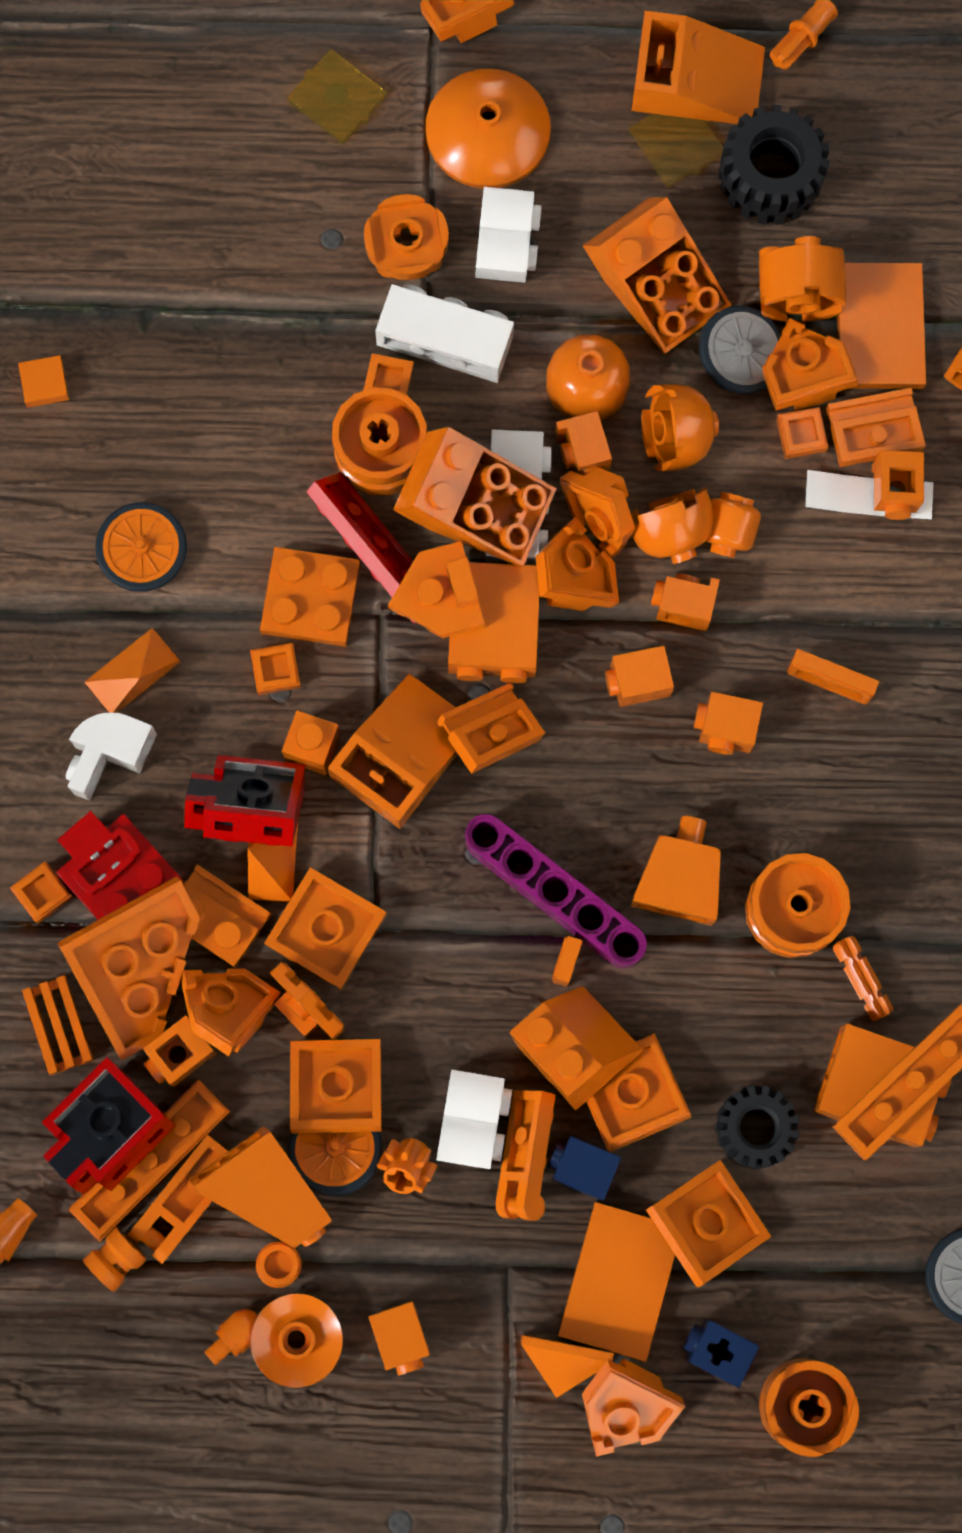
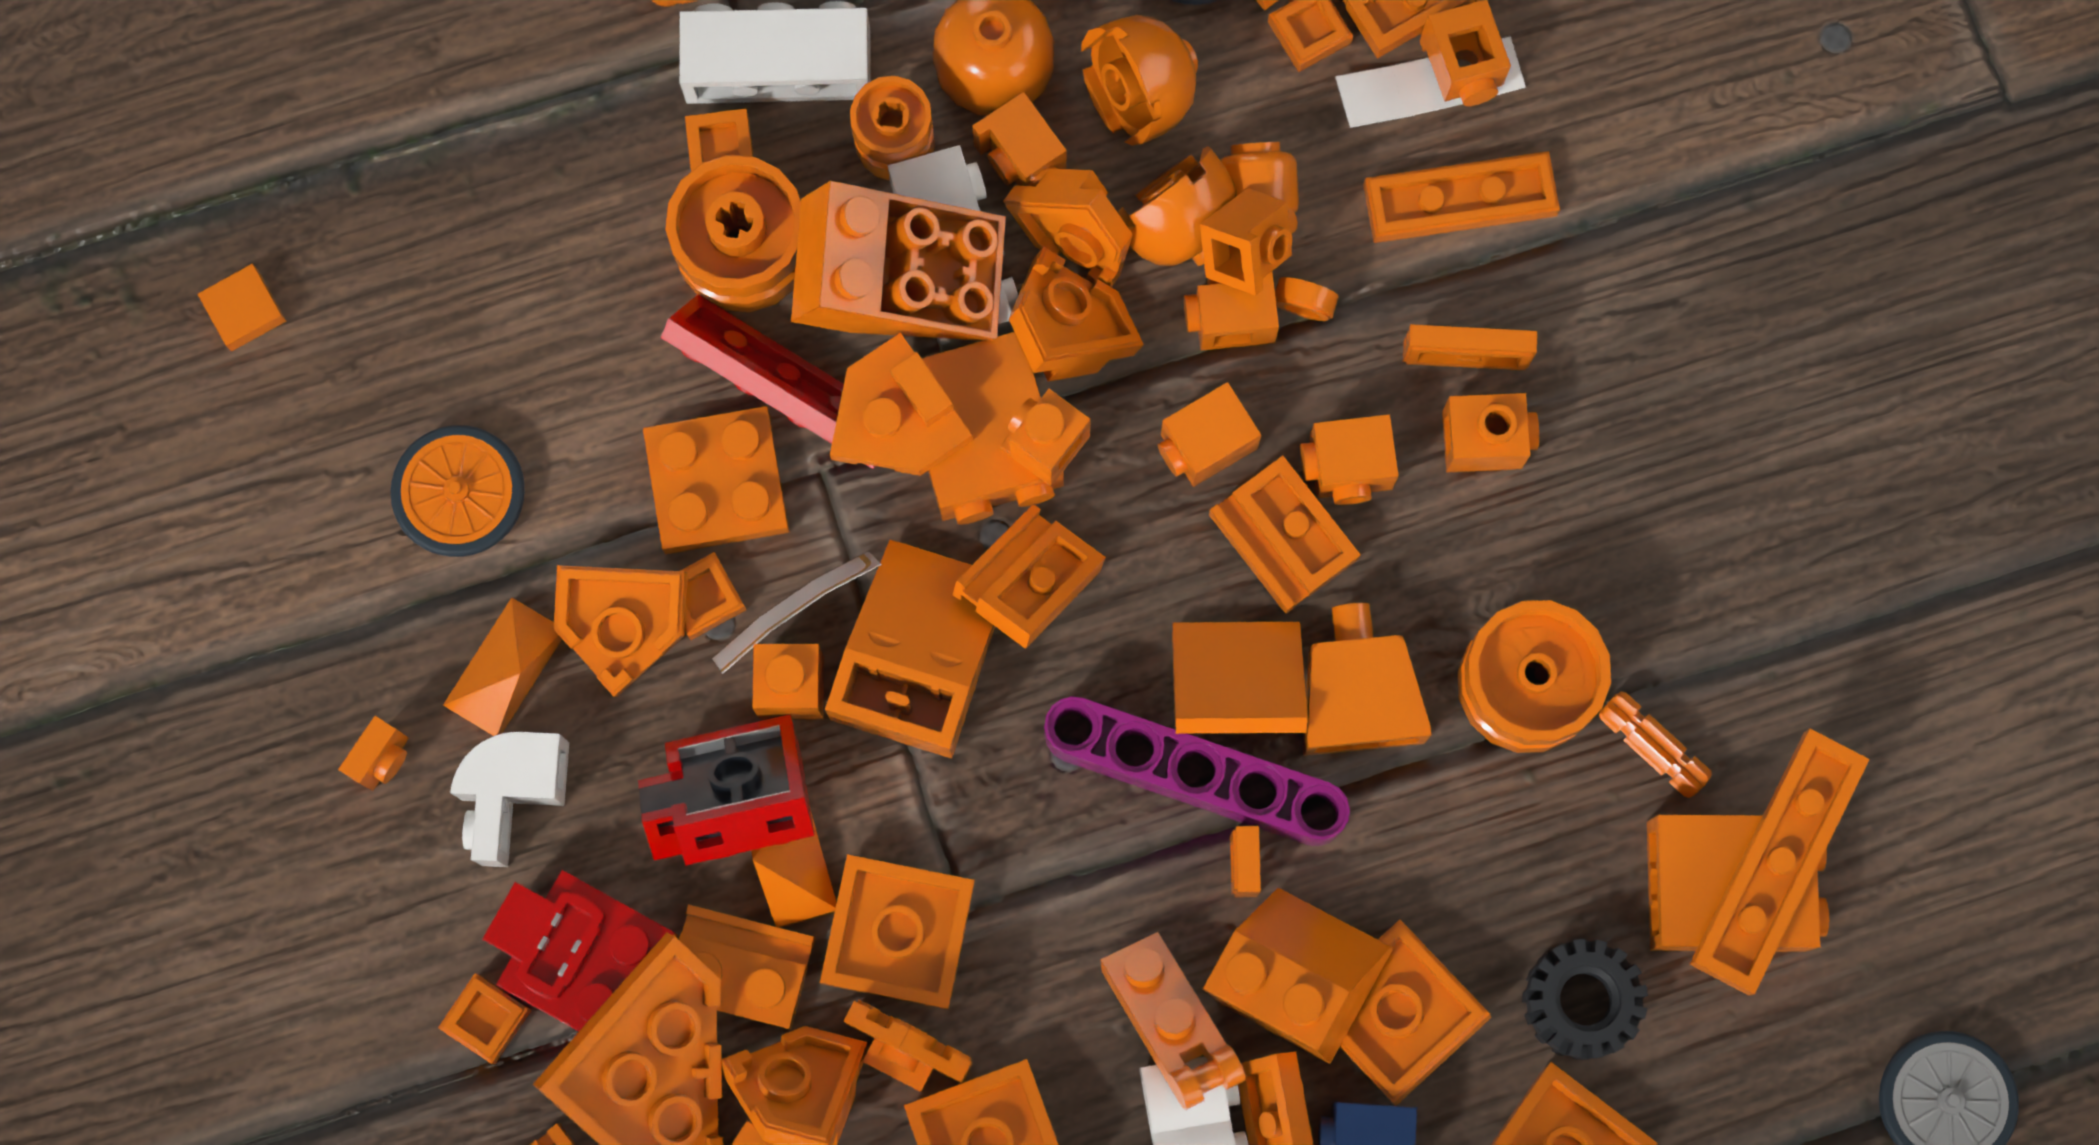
camera: 15 degrees left, 0 degrees up
(30, 699) = (375, 755): none -> orange plate
(216, 665) = (619, 618): none -> orange plate
(331, 694) = (791, 607): none -> white sticker
(481, 1045) = (1171, 1020): none -> orange plate
(503, 403) = (891, 123): none -> orange wheel
(532, 640) = (1046, 435): none -> orange brick
(604, 840) = (1238, 677): none -> orange tile
(667, 758) = (1284, 534): none -> orange plate
(717, 555) = (1259, 237): none -> orange brick
(735, 609) = (1305, 299): none -> orange tile
(825, 737) = (1488, 432): none -> orange brick
(863, 577) = (1461, 197): none -> orange tile

